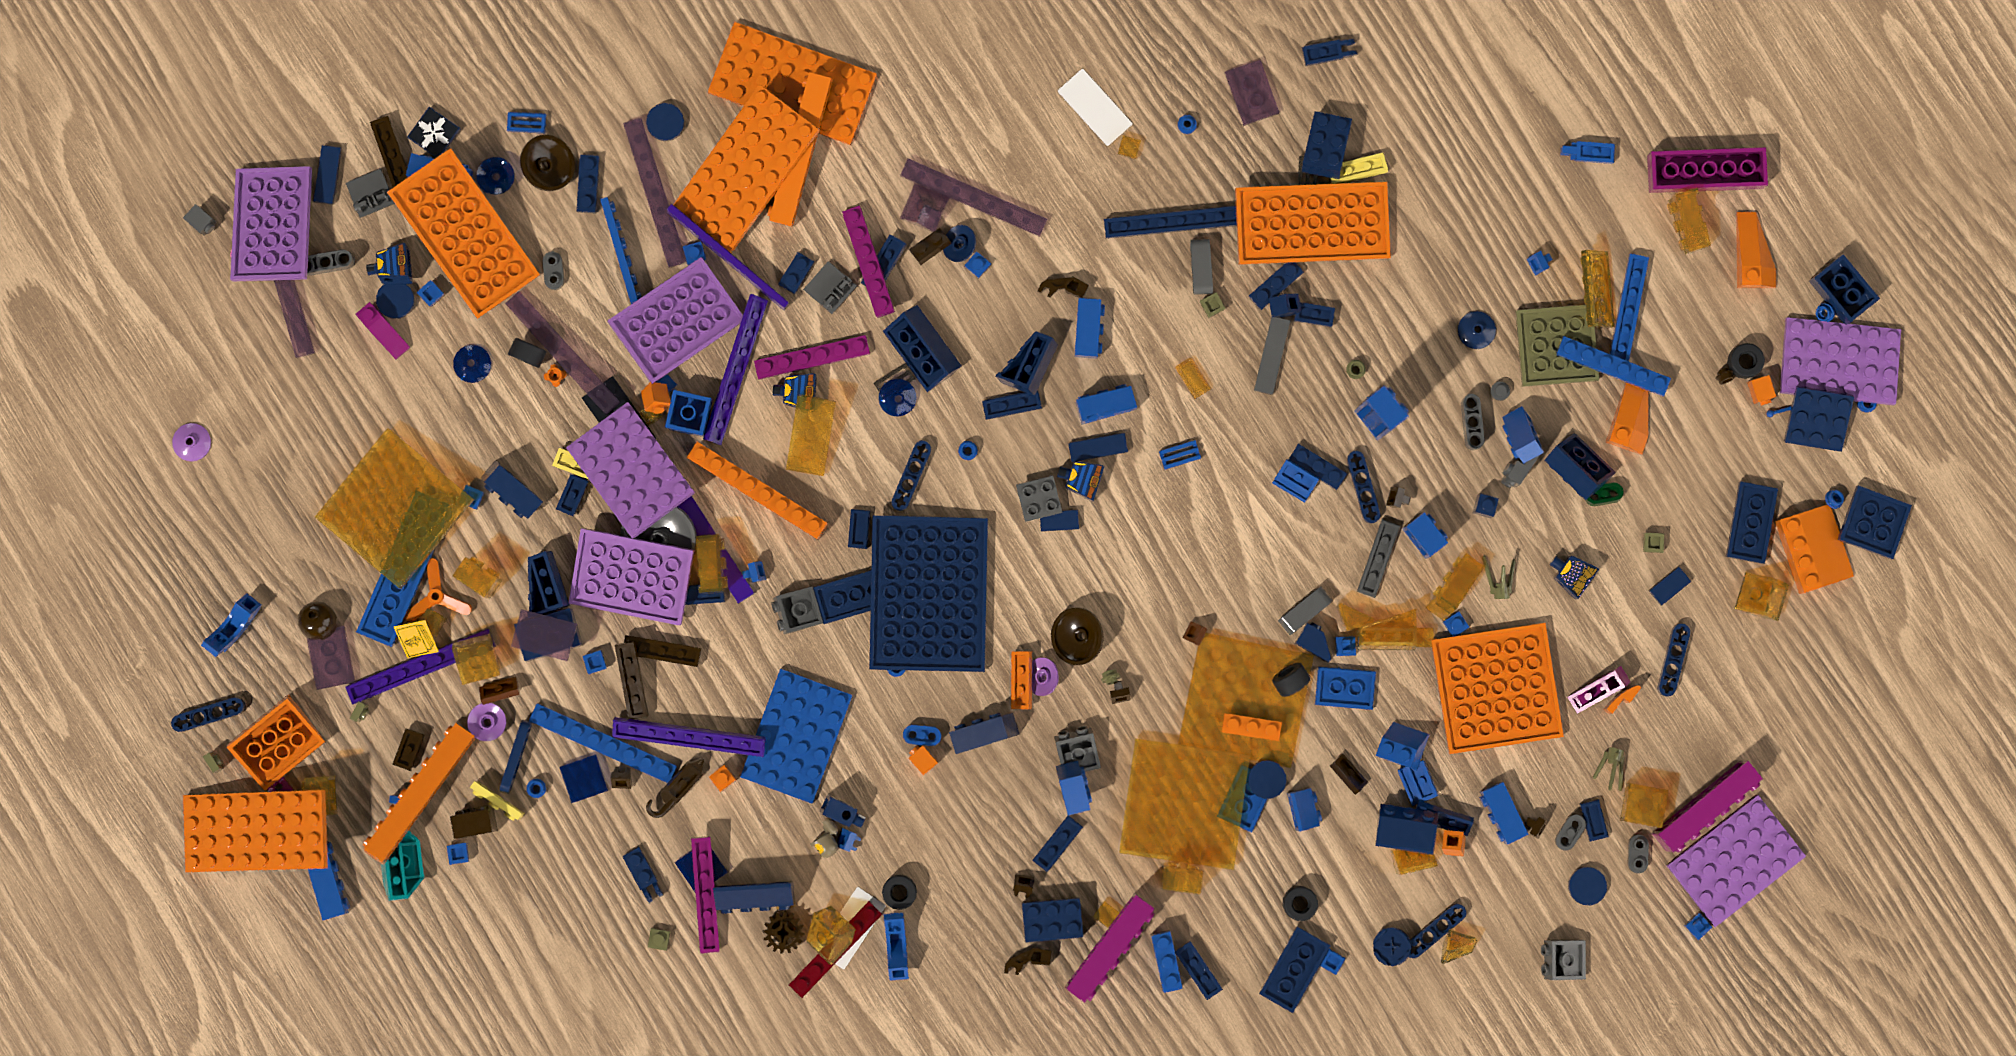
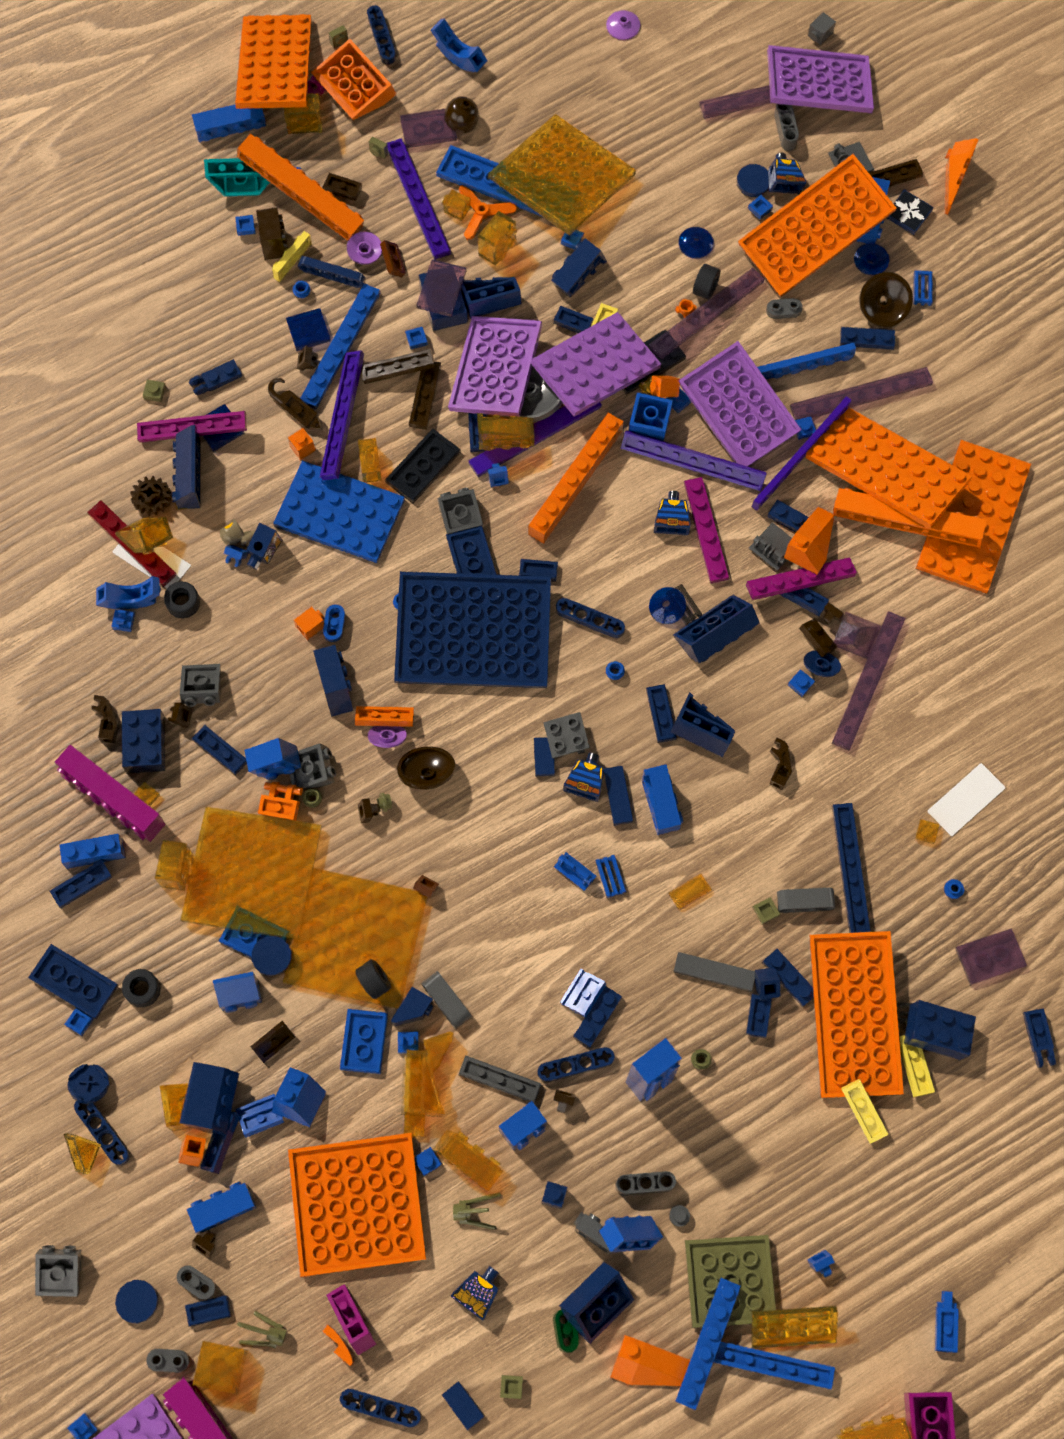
camera: 90 degrees right, 15 degrees down
(327, 175) = (866, 128): dark blue tile -> none
(375, 77) = (956, 167): none -> orange wedge
(382, 330) = (726, 167): magenta slope -> none
(416, 639) = (442, 190): yellow sticker -> none
(476, 659) = (422, 237): clear yellow brick -> none
(665, 122) = (929, 403): dark blue tile -> none
(740, 706) = (369, 460): none -> clear yellow brick
(742, 650) = (423, 465): none -> black tile
(811, 435) = (630, 524): clear yellow plate -> none
(830, 249) = (811, 541): none -> orange wedge
(904, 231) = (832, 613): none -> dark brown tile
(921, 951) = (123, 620): none -> blue tile
(991, 866) = (200, 684): none -> dark grey plate
(1089, 328) = (739, 786): blue brick -> none
(1100, 749) = (312, 792): none -> olive plate
(1118, 779) = (280, 807): none -> orange plate
(1176, 489) = (574, 871): none -> blue hinge
(1251, 727) = (326, 940): orange plate -> none
(1403, 218) = (864, 1111): none -> light yellow plate
(1468, 335) = (741, 1202): dark blue dish -> none

